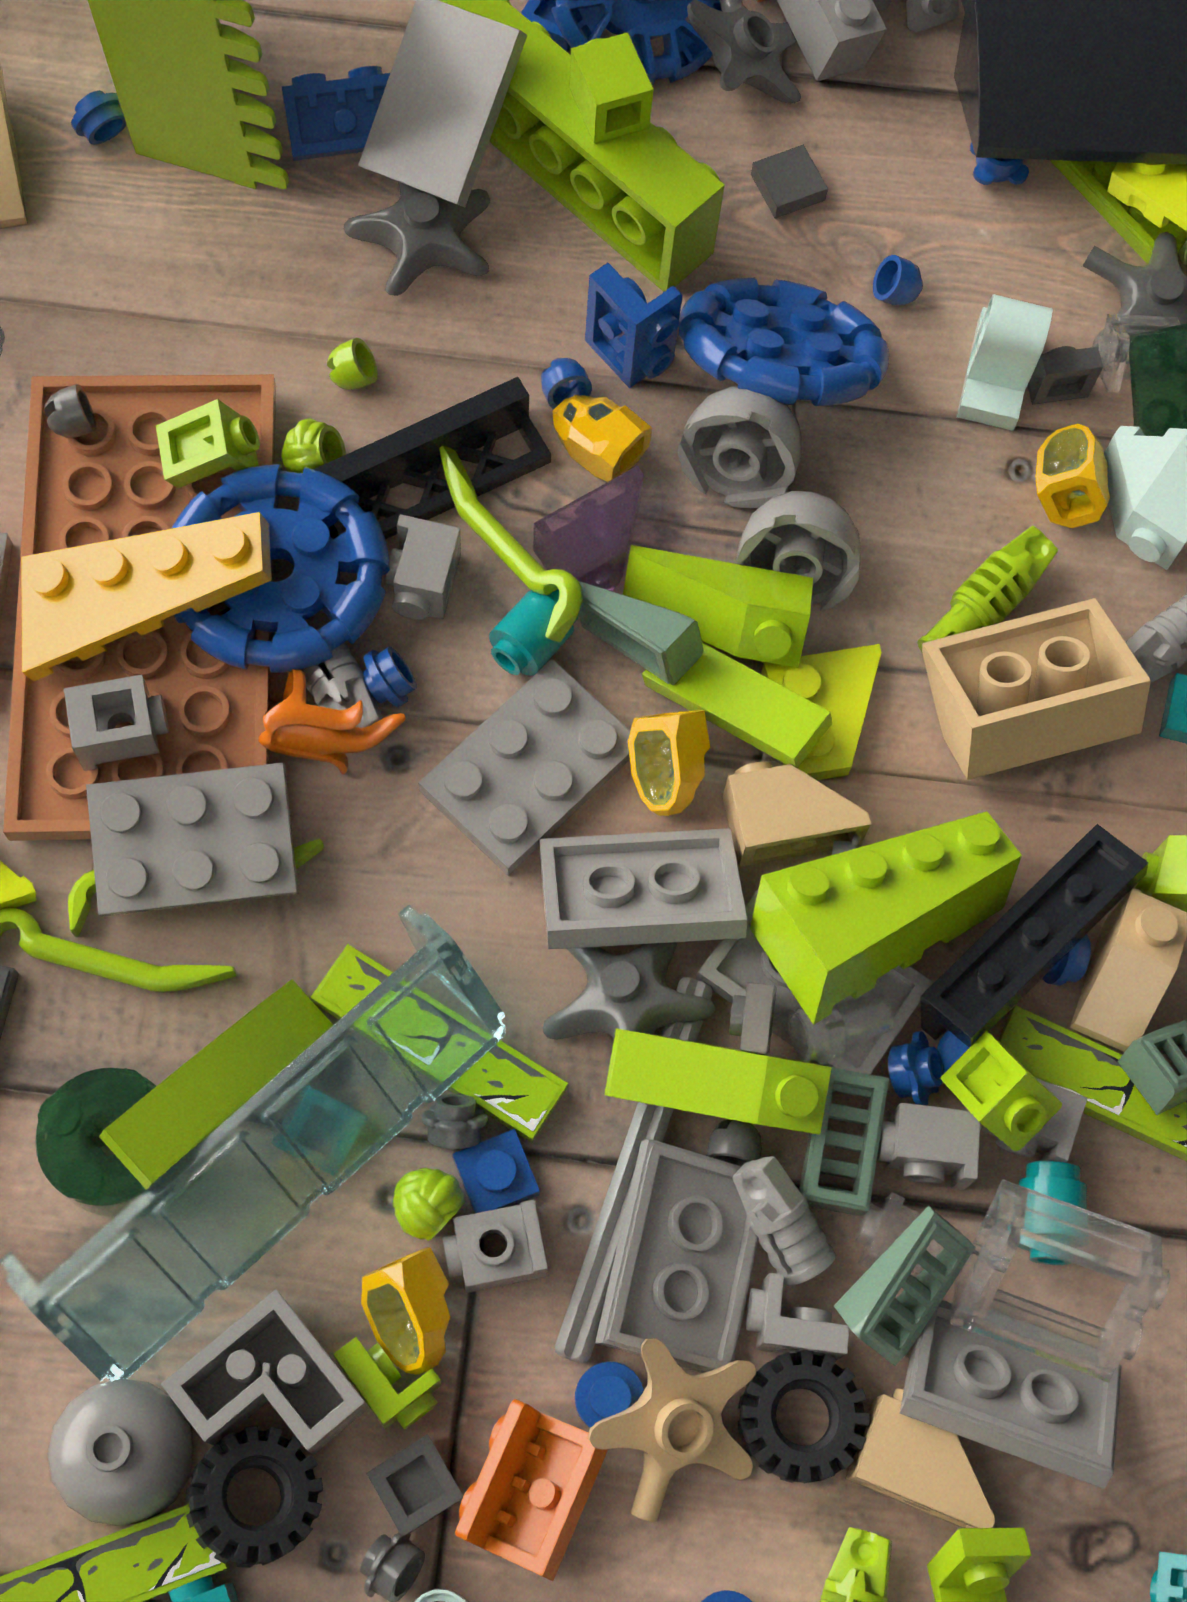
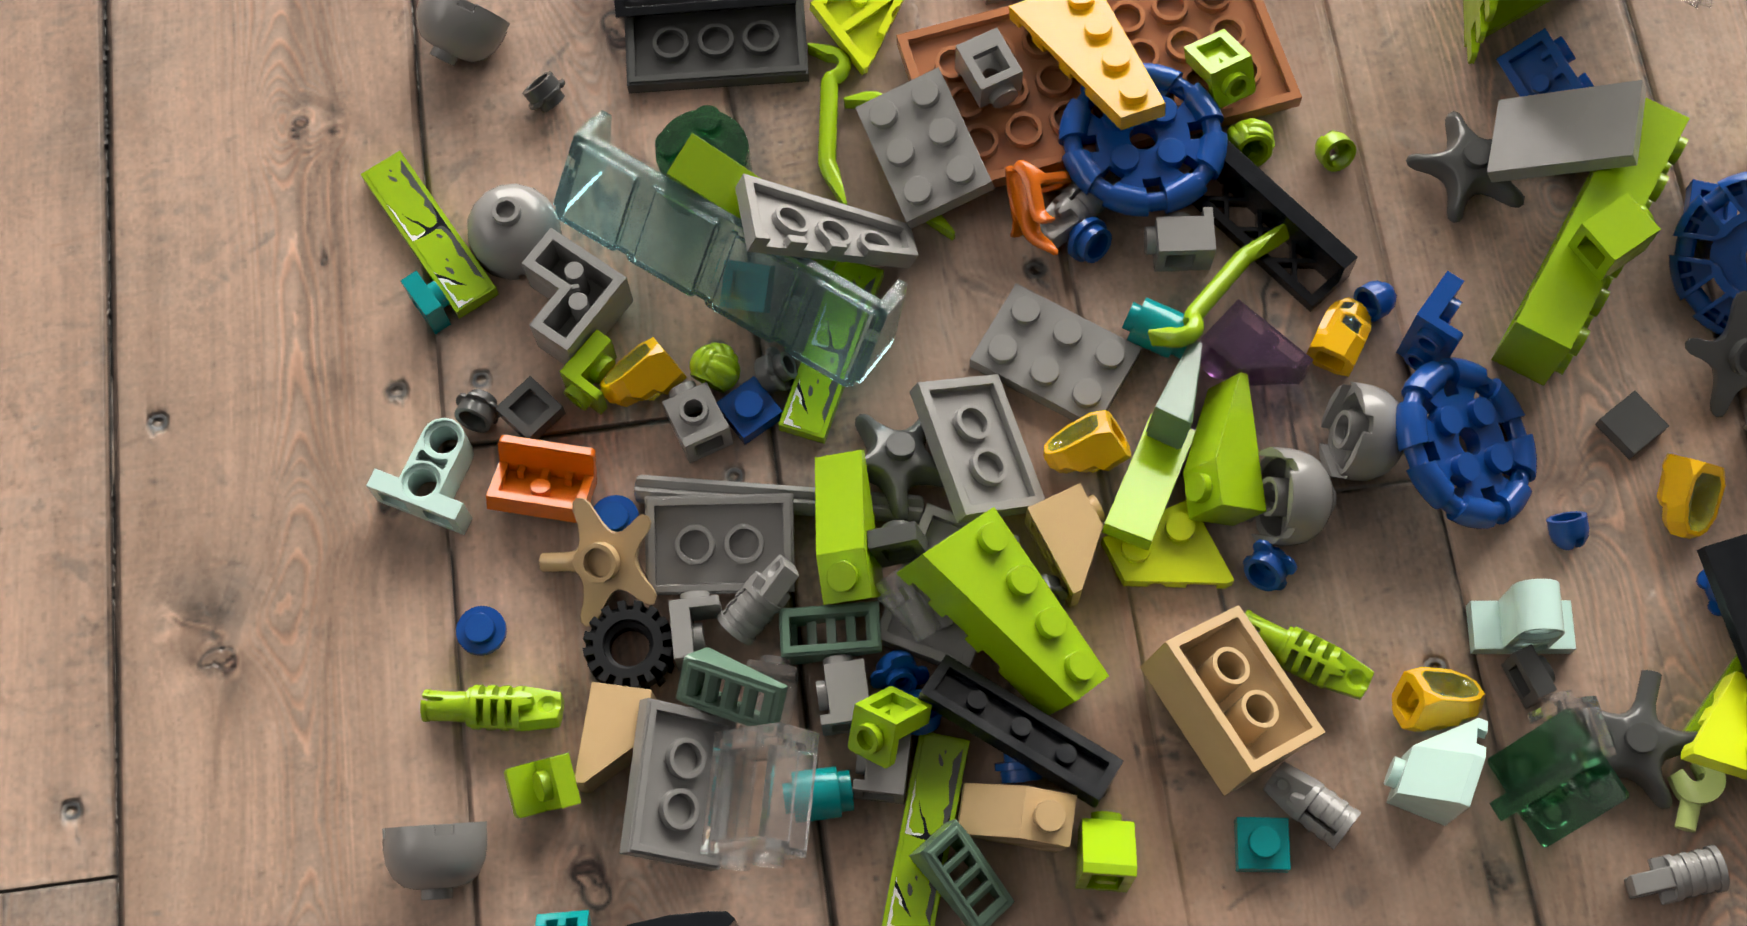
camera: 85 degrees right, 0 degrees up
(288, 1005) = (809, 226): none -> light grey wing
(298, 1503) = (482, 289): black tyre -> none
(735, 1142) = (806, 561): dark grey hinge -> none
(874, 601) = (1268, 566): none -> blue plate
(889, 153) = (1689, 495): none -> yellow rock

